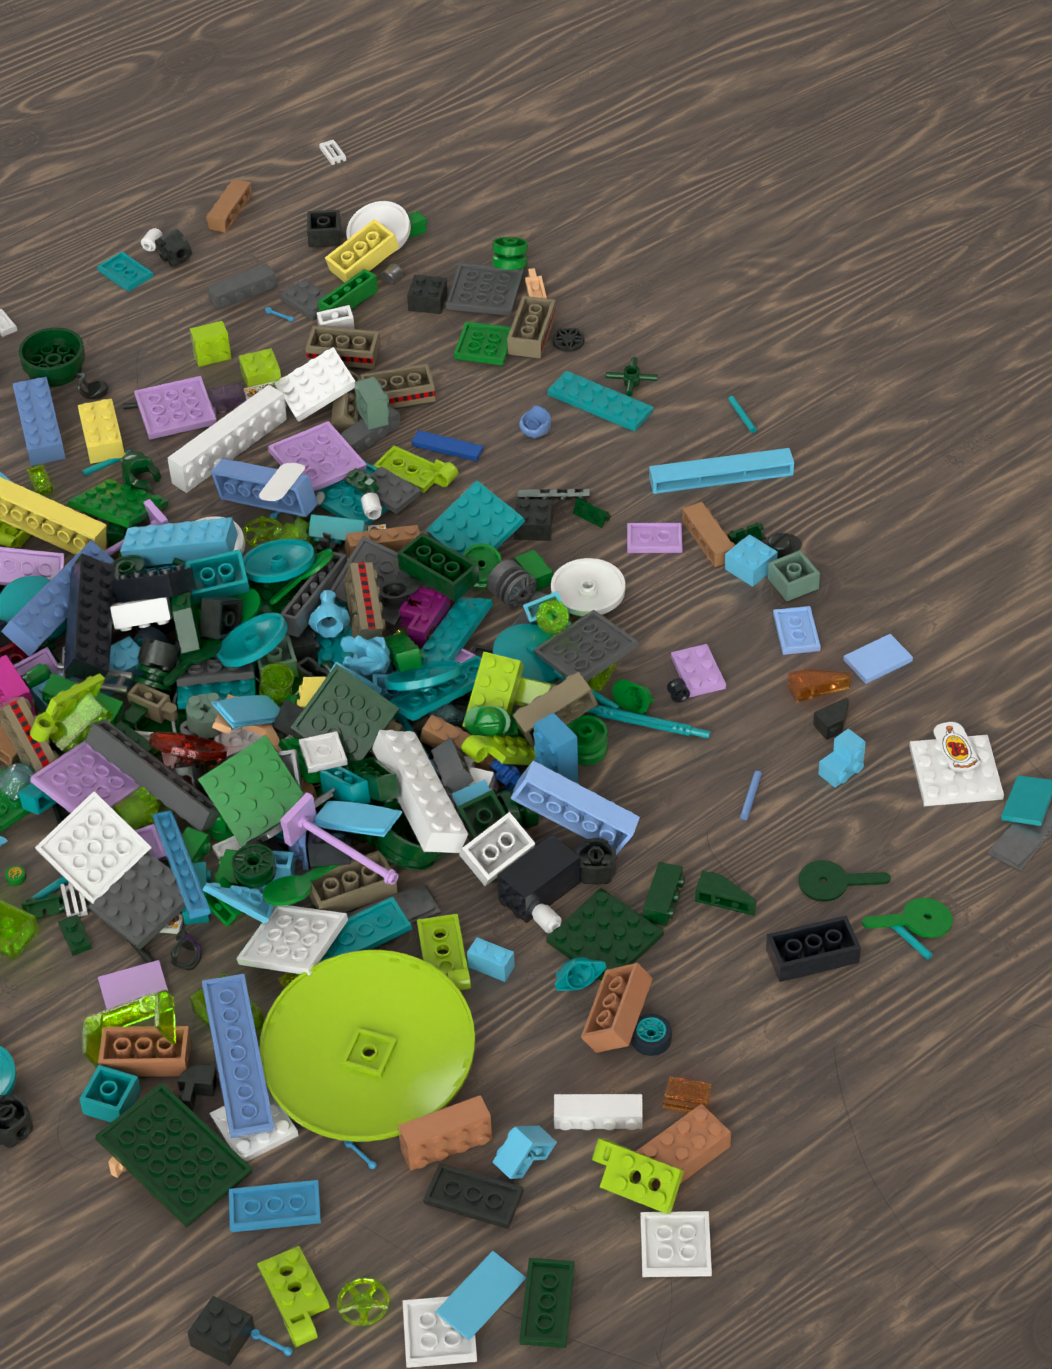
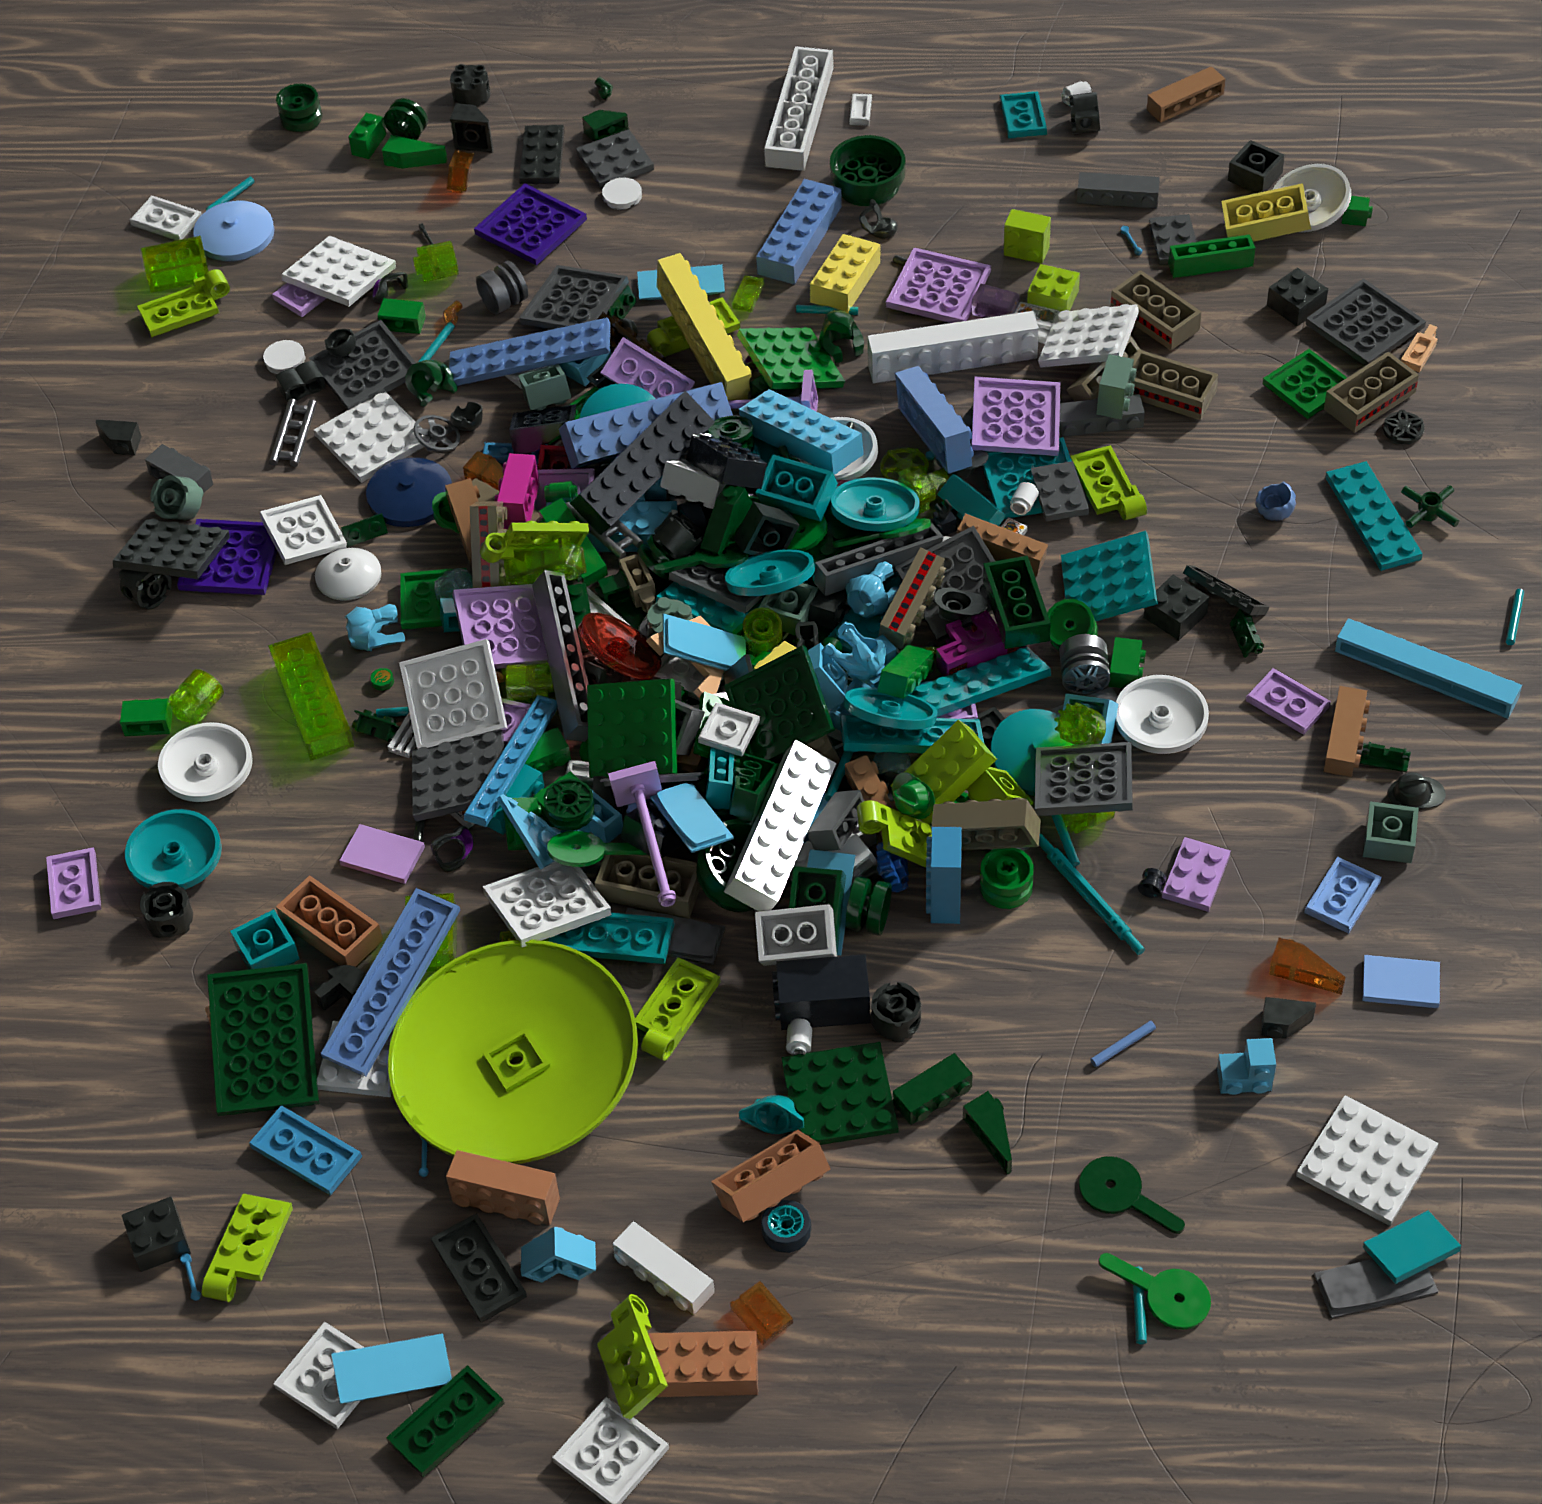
camera: 40 degrees right, 5 degrees up
(75, 935) = (379, 770): dark green plate -> none
(155, 1004) = (362, 886): clear neon green windscreen -> none
(281, 481) = (939, 422): white sticker -> none
(329, 156) = (1346, 95): white tile -> none
(336, 318) = (1175, 276): white brick -> none
(361, 481) = (1034, 465): dark green hinge -> none
(363, 1301) = (296, 1297): clear neon green wheel -> none
(392, 274) = (1283, 255): flat silver brick -> none
(447, 445) = (1167, 476): blue tile -> none
(490, 959) = (707, 1044): medium azure brick -> none
(509, 253) = (1422, 295): green wheel -> none
(574, 806) = (912, 940): light blue brick -> none
(632, 696) = (1097, 861): green piece -> none
(749, 560) = (1360, 783): medium azure brick -> none
(813, 948) = (1022, 1249): black brick -> none
(956, 746) = (1387, 1134): sticker -> none

